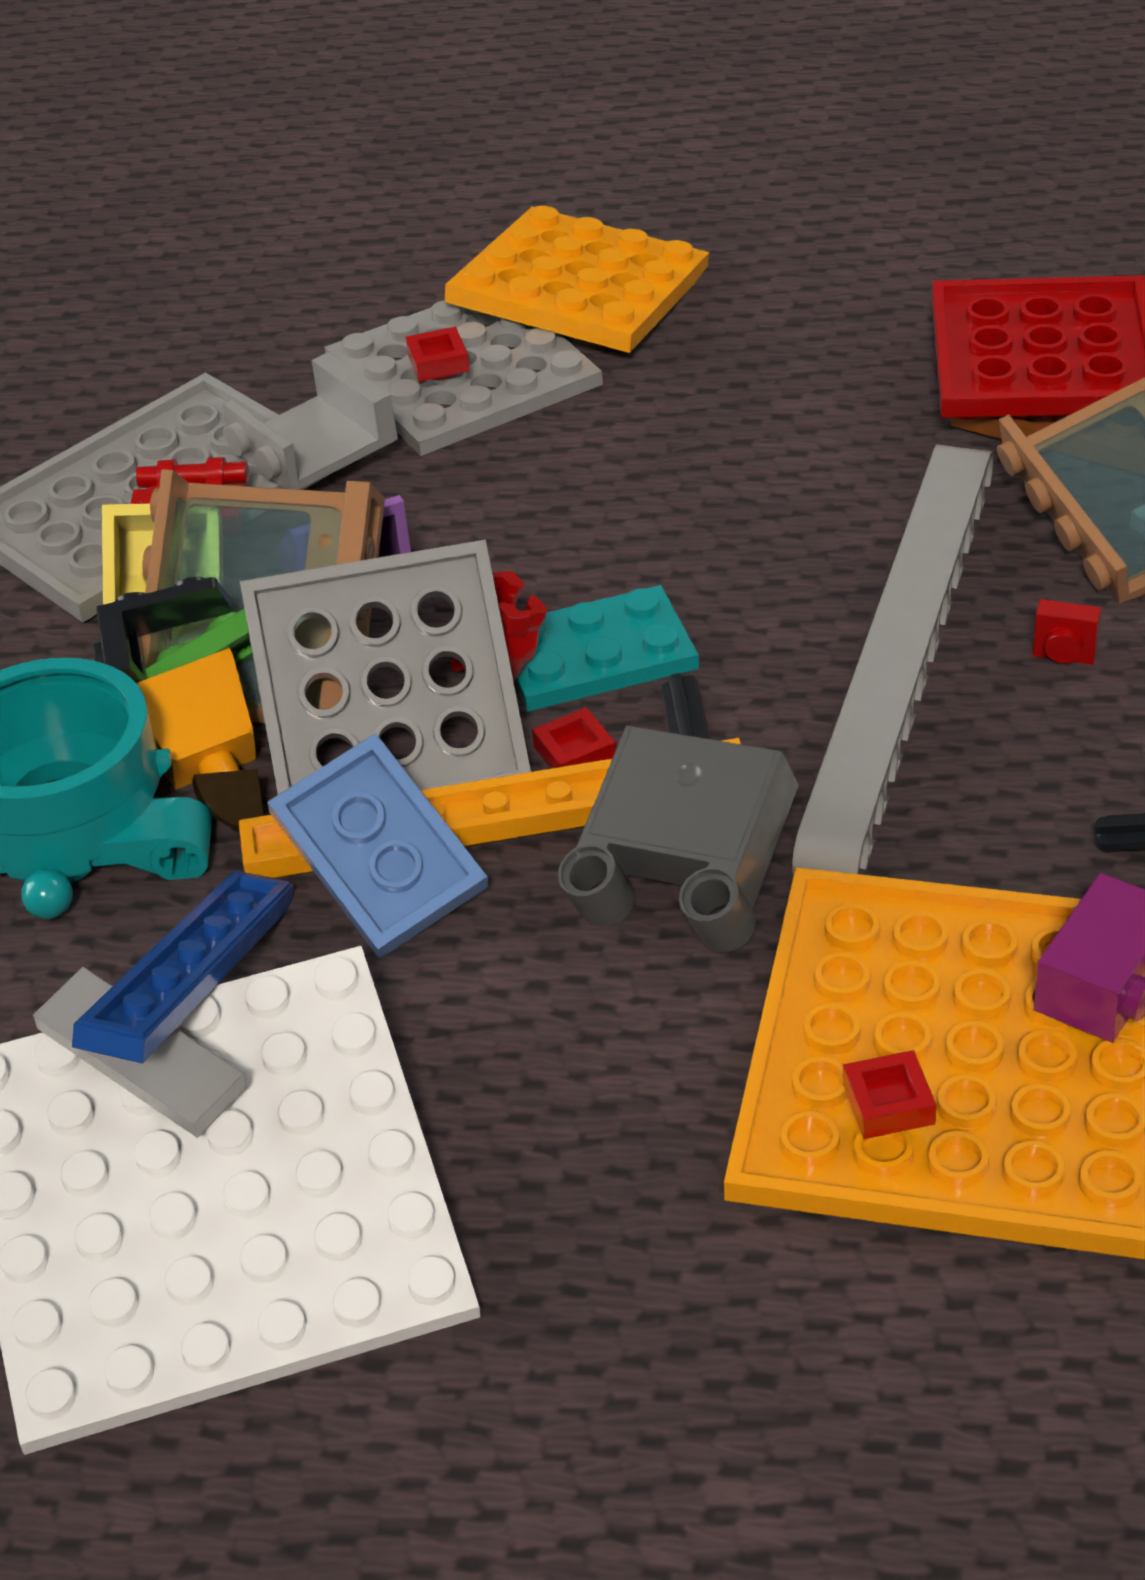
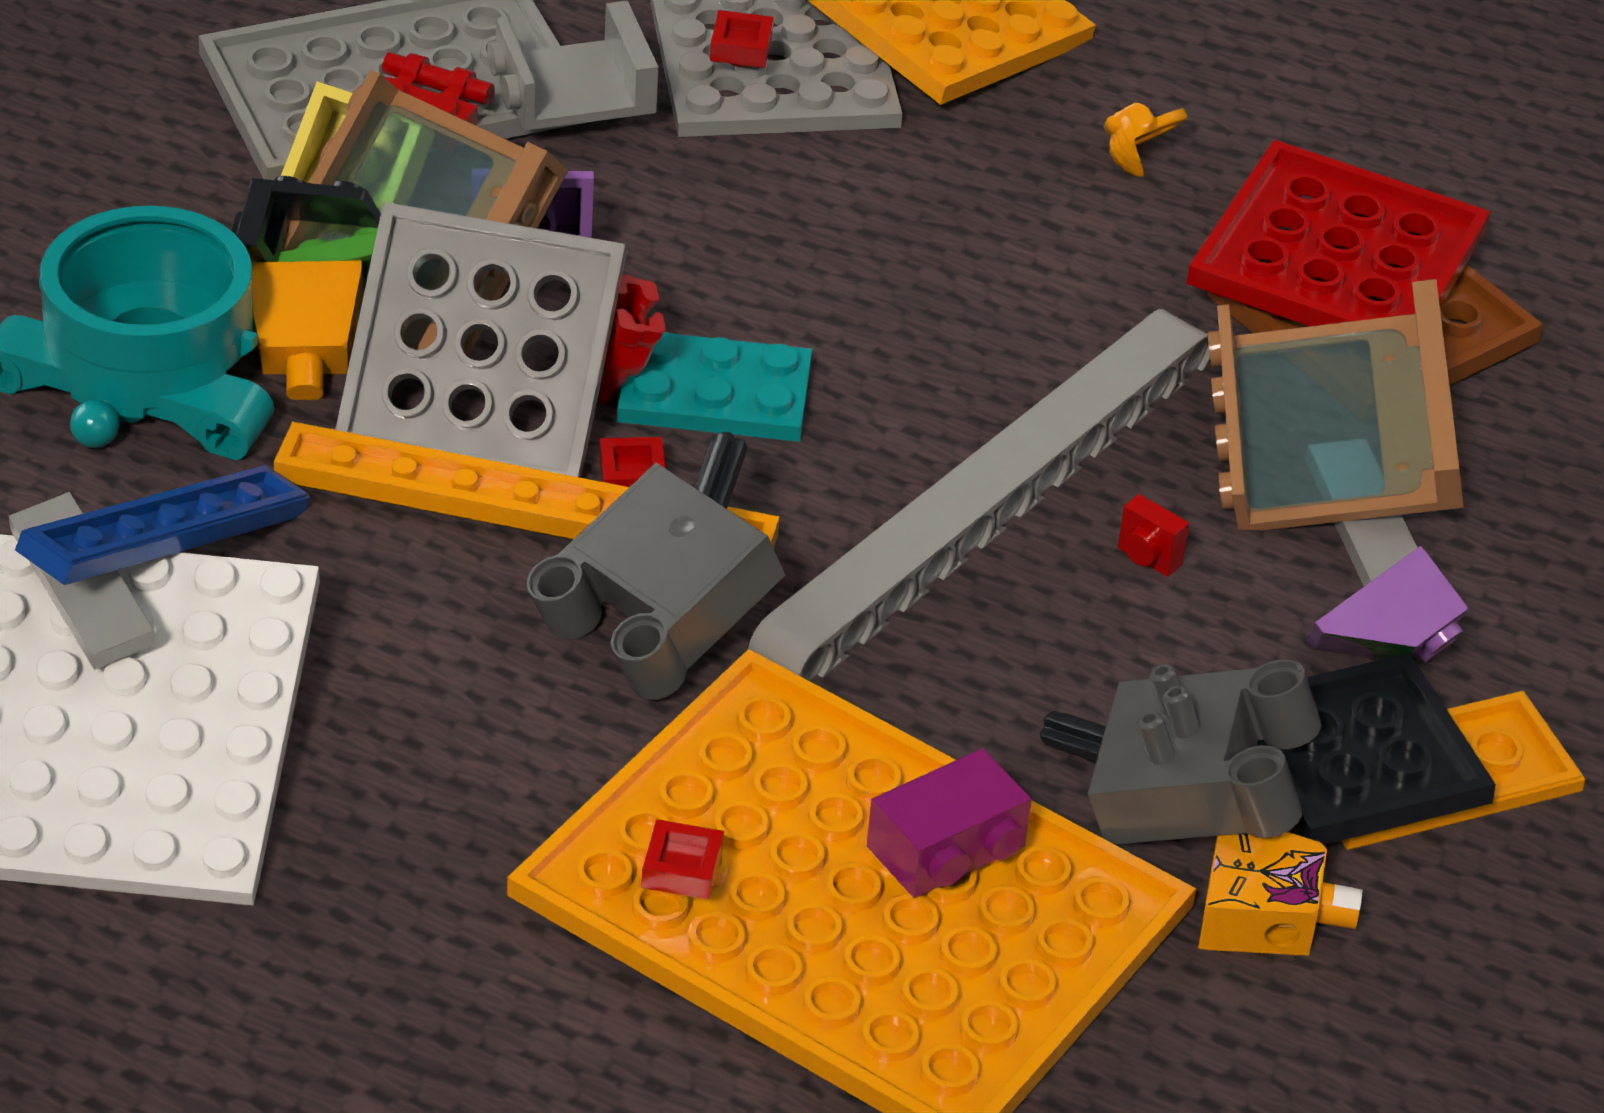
camera: 15 degrees right, 0 degrees up
(230, 795) = (297, 396): dark brown tile -> none
(378, 845) = (393, 488): medium blue plate -> none
(801, 318) = (1133, 127): none -> light orange piece

